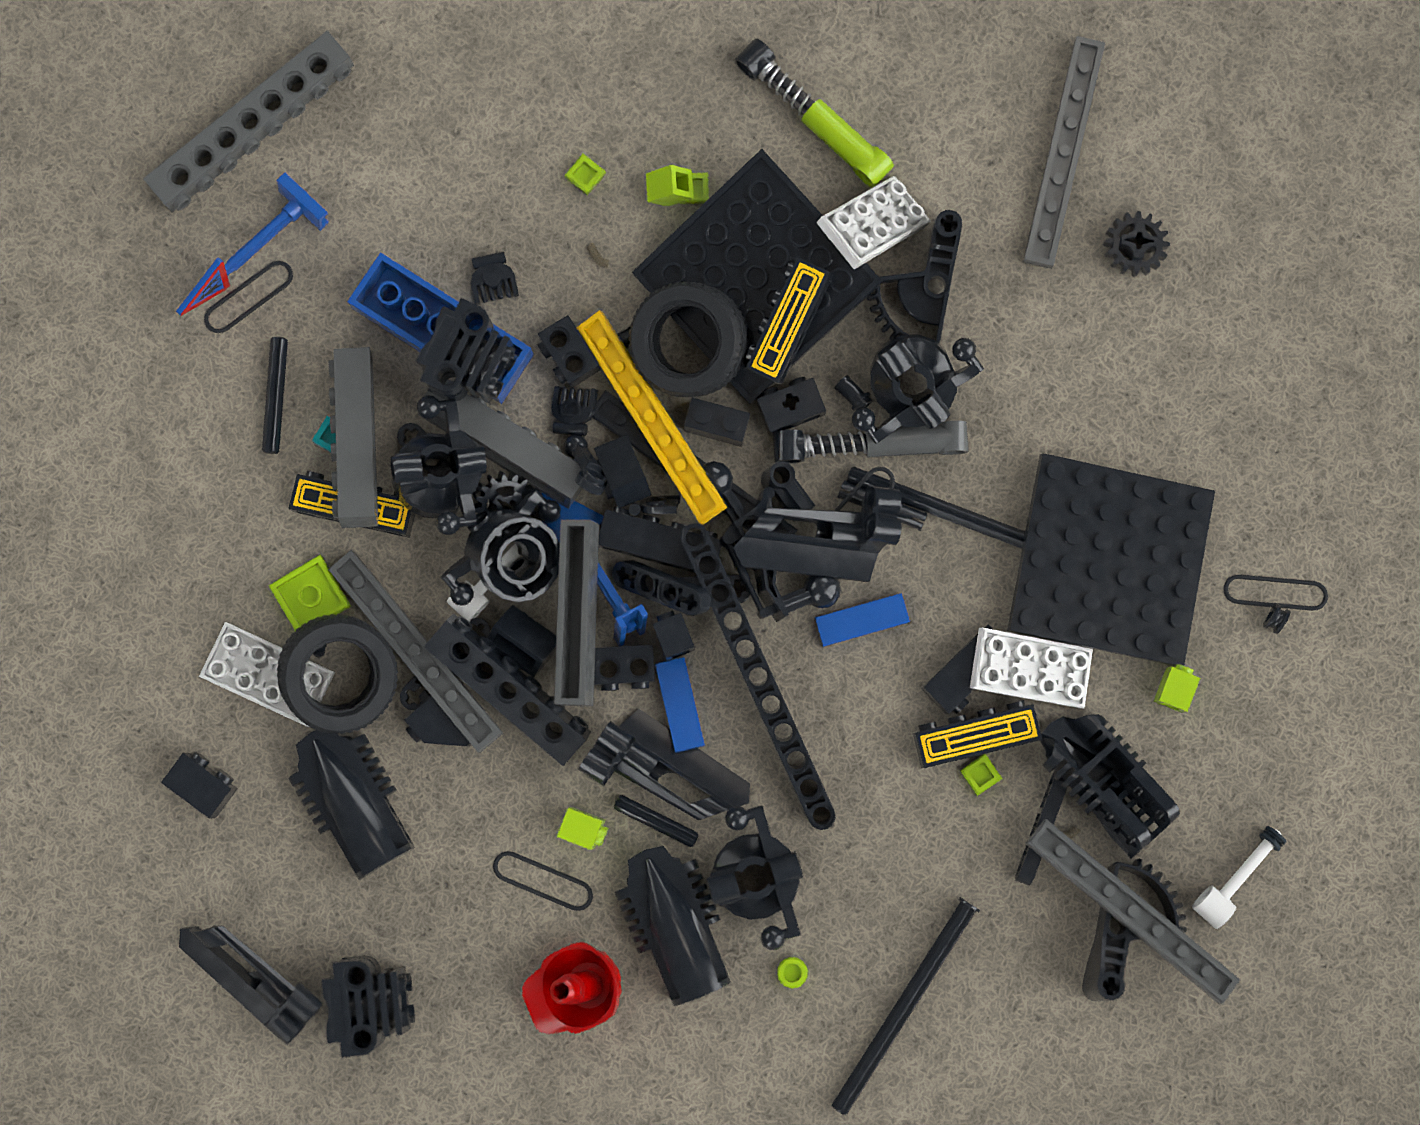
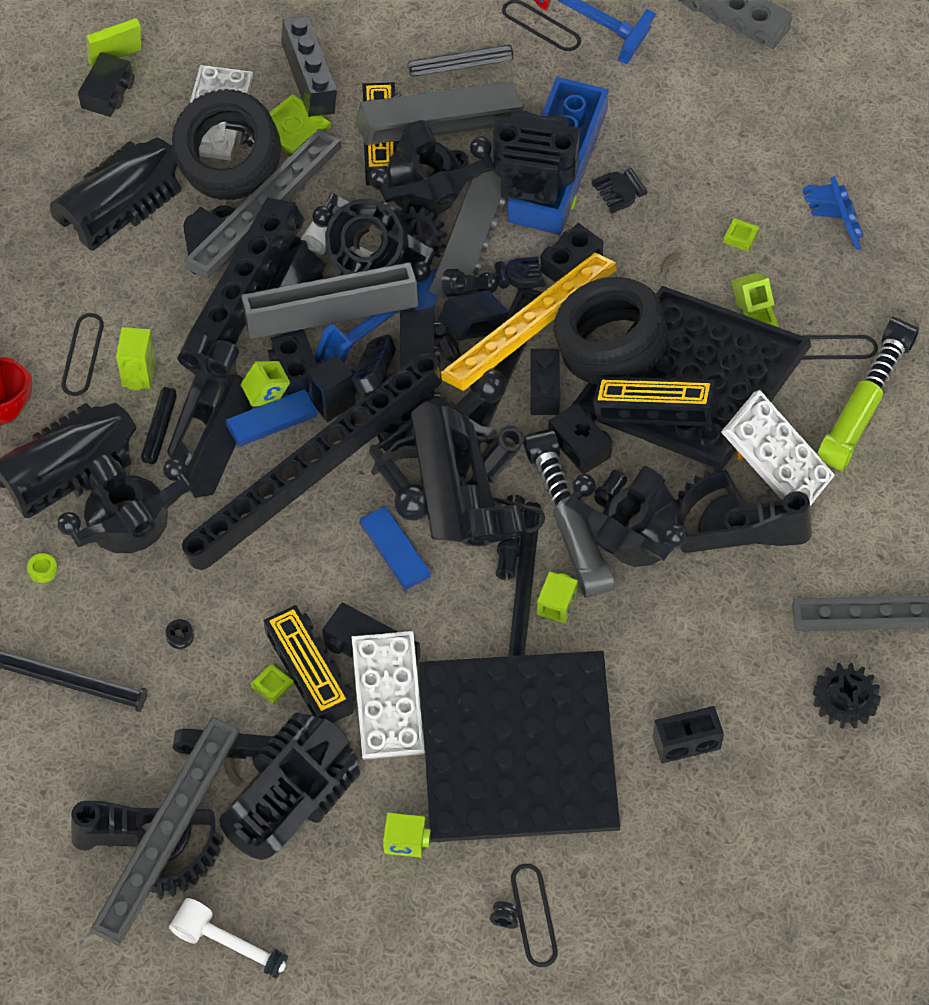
camera: 75 degrees right, 25 degrees down
(151, 765) = (115, 40): none -> lime tile
(243, 559) = (308, 66): none -> black brick
(584, 66) = (834, 202): none -> blue plate
(647, 702) = (265, 382): none -> lime brick
(752, 144) = (842, 356): none -> black piece
(911, 857) = (174, 640): none -> black bush
(962, 478) = (557, 597): none -> lime brick
(1145, 401) = (687, 734): none -> black brick

